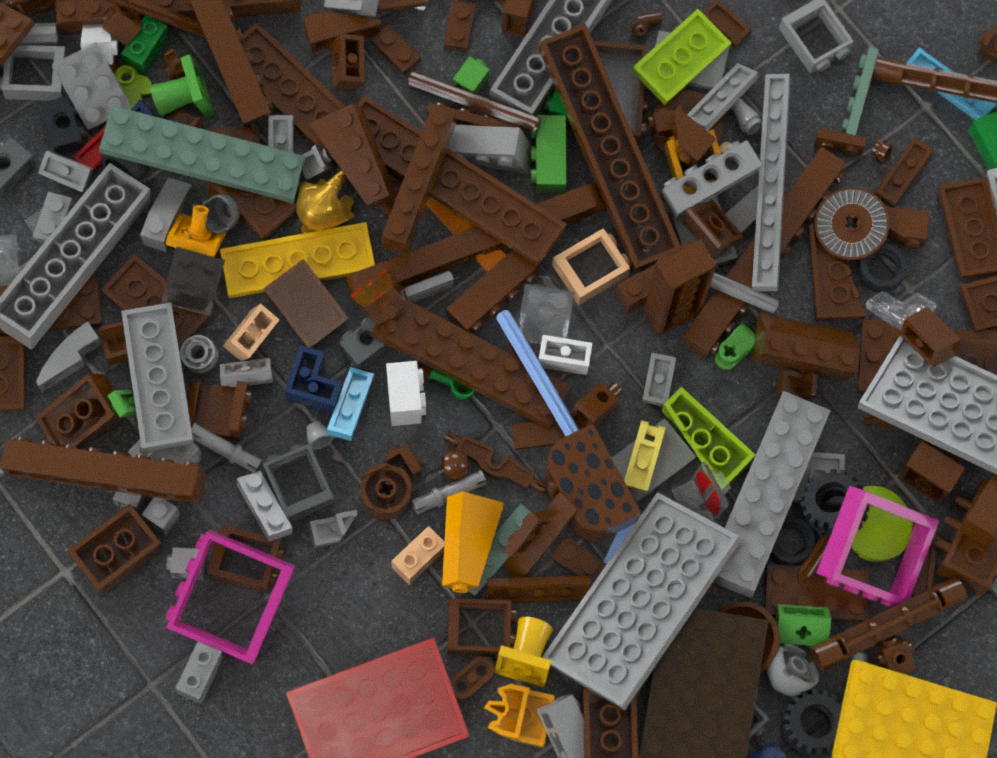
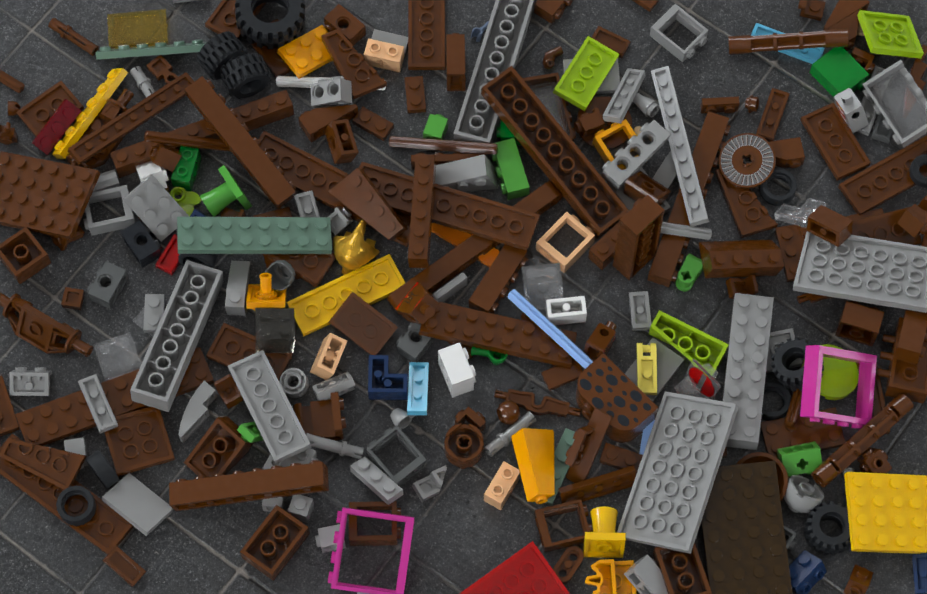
camera: 10 degrees left, 5 degrees down
(65, 171) = (153, 275): light grey plate -> none
(173, 65) = (212, 177): reddish brown plate -> none
(690, 138) = (611, 129): reddish brown slope -> none
(861, 86) = (722, 59): sand green plate -> none

